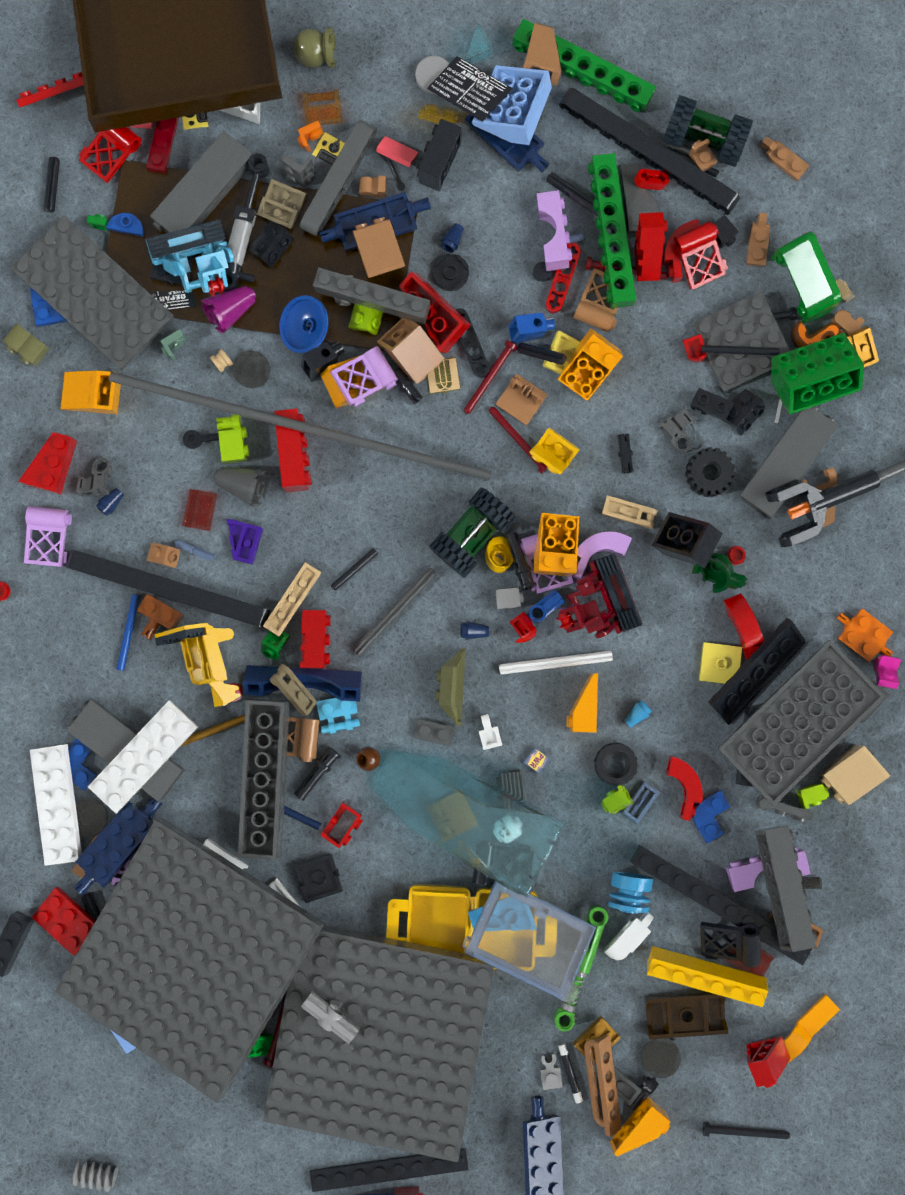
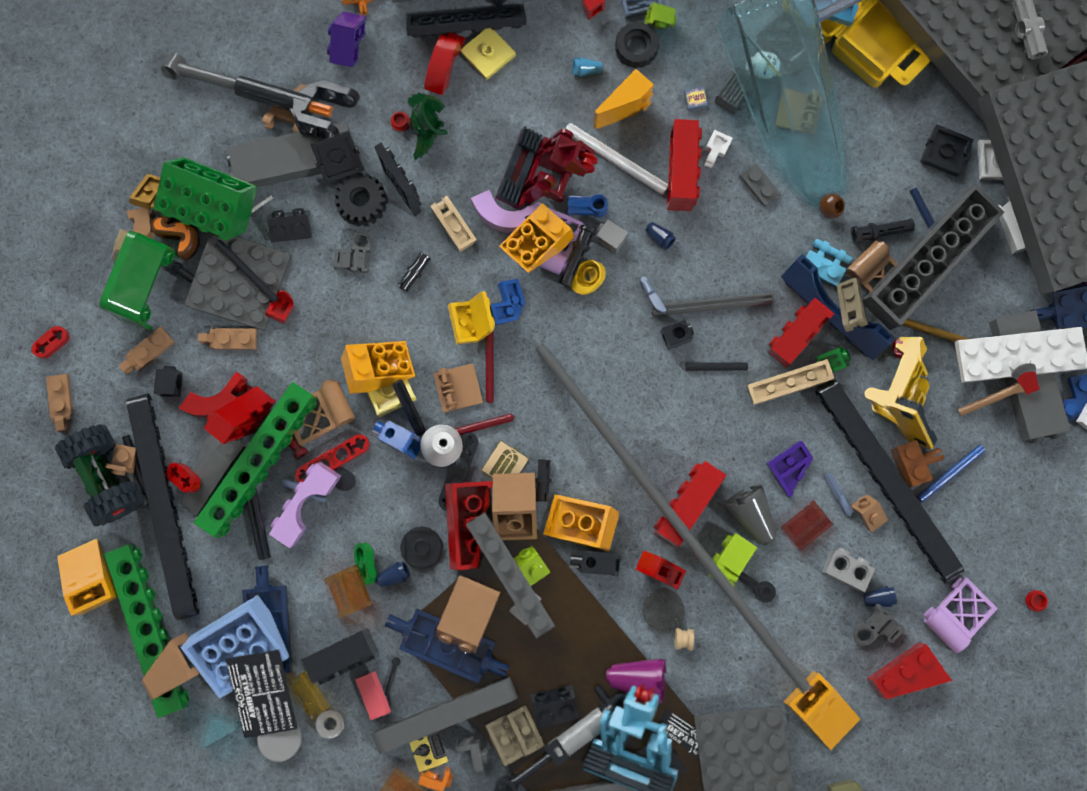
camera: 140 degrees left, 5 degrees down
(125, 736) = (1027, 383): none -> piece
(146, 495) = (846, 574): none -> light grey brick
(174, 341) = (710, 691): sand green bracket -> none
(275, 392) = (660, 569): none -> red slope
(297, 321) = (595, 611): blue dish -> none
(341, 825) = (896, 173): red window -> none
(372, 187) = (422, 681): medium nougat leg -> none
(377, 369) = (557, 514): lavender piece -> none
(400, 558) = (673, 342): none -> black brick
(408, 103) = (329, 733): none -> light grey piece
(441, 580) = (653, 297): none -> sand blue piece
(451, 686) = (715, 206): olive wedge -> none
(472, 201) = (352, 588): none -> clear orange plate
(472, 531) = (606, 308): black plate -> none
(478, 228) = (364, 560): none -> green plate
(496, 347) = (434, 452): none -> white cone
(501, 694) = (683, 165): none -> red brick
(524, 628) = (618, 203): red plate -> none
(534, 487) = (512, 303): none -> blue plate
(654, 62) = (86, 578): none -> light orange slope
(687, 539) = (430, 156): black brick -> none
(693, 503) = (397, 176): none -> black plate
(698, 240) = (200, 388): red piece -> none
(709, 298) = (230, 339): none -> medium nougat hinge
(711, 404) = (310, 249): black plate -> none
(752, 482) = (337, 156): none -> black plate
(825, 190) = (52, 344): none -> red beam
(832, 581) = (345, 35): none -> dark purple brick

